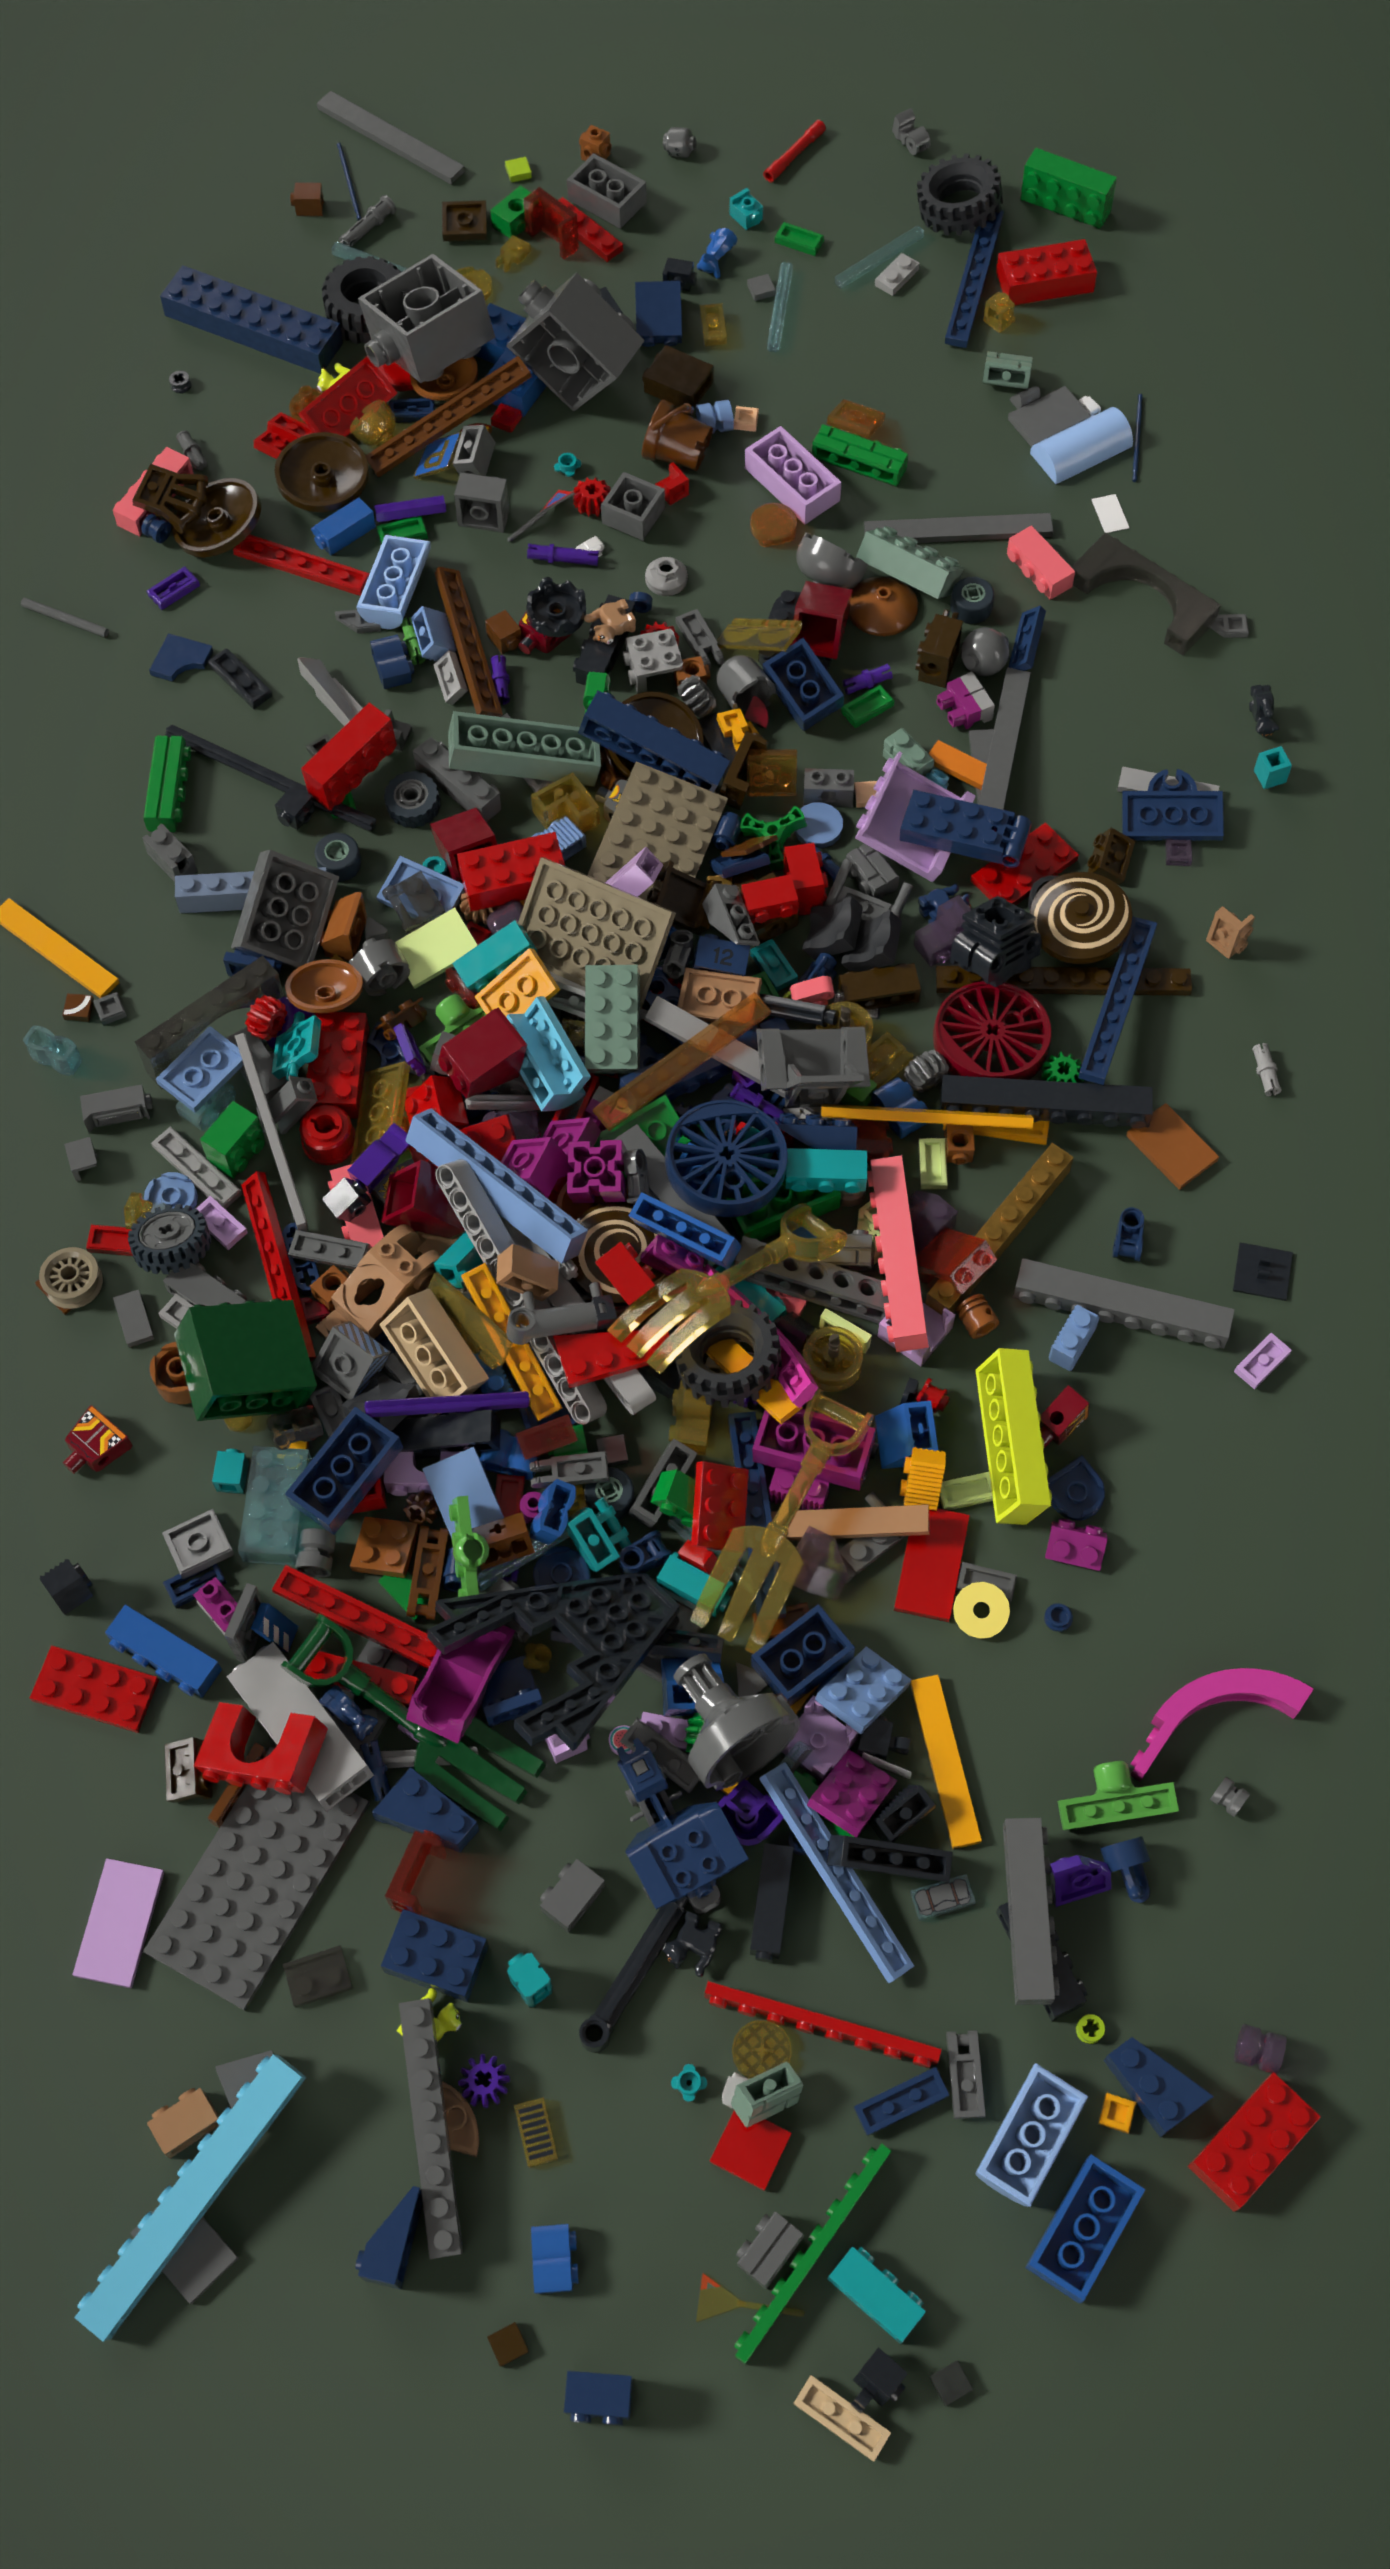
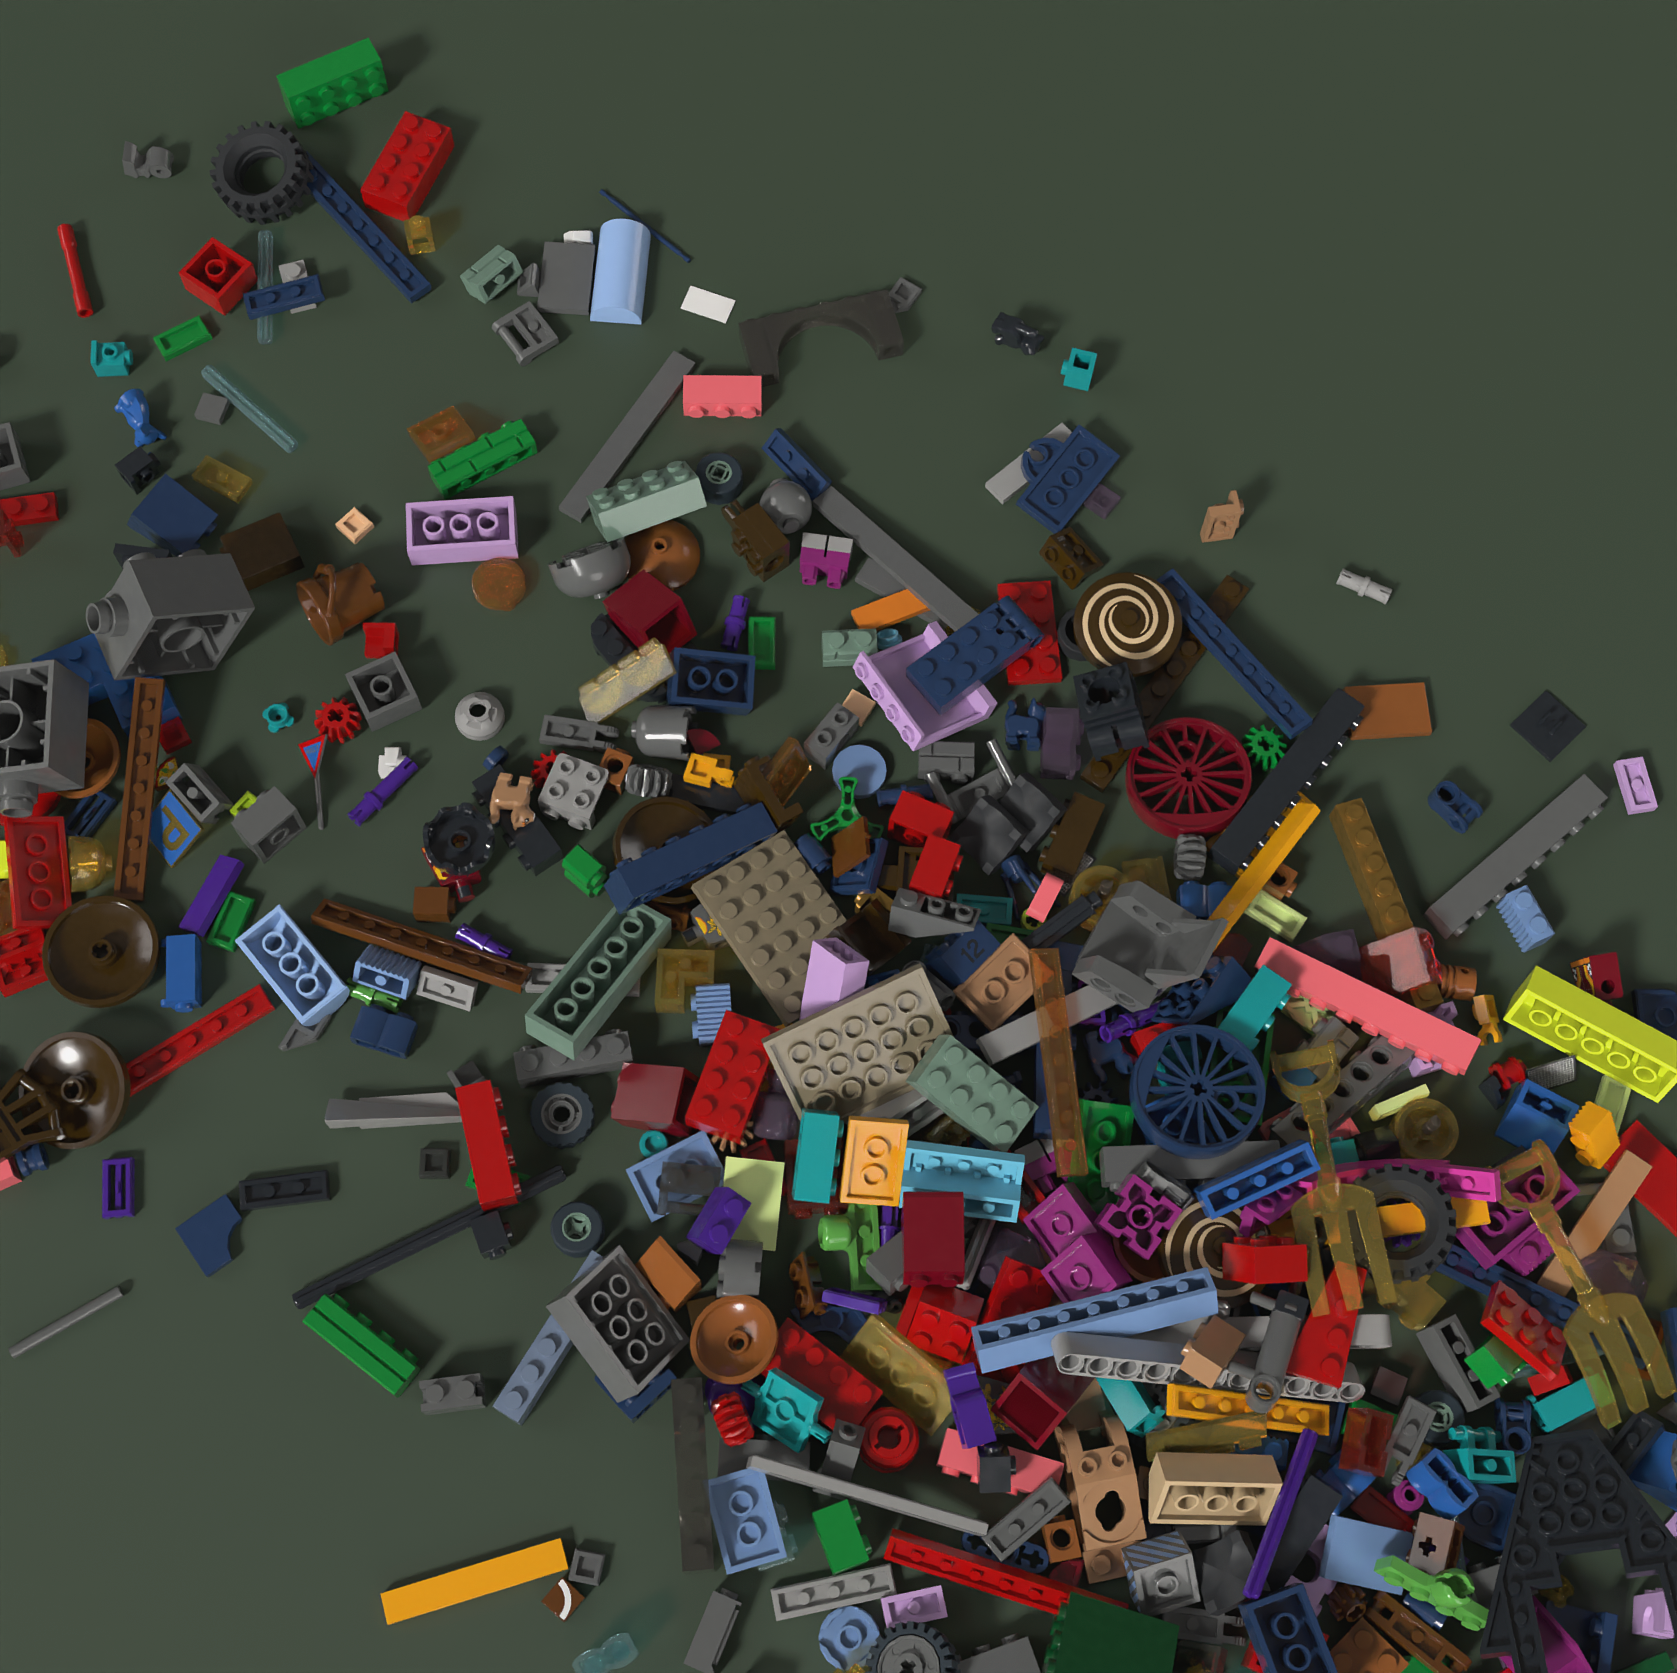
camera: 60 degrees left, 5 degrees up
(401, 924) = (718, 1220): none -> dark purple brick
(716, 416) = (338, 548): medium blue wheel -> none
(859, 223) = (218, 276): none -> red brick
(878, 268) = (284, 297): none -> dark blue tile
(957, 1430) = (1554, 1073): none -> black sticker
(970, 1355) = (1486, 1013): none -> light orange plate
(988, 423) = (531, 327): none -> dark grey plate

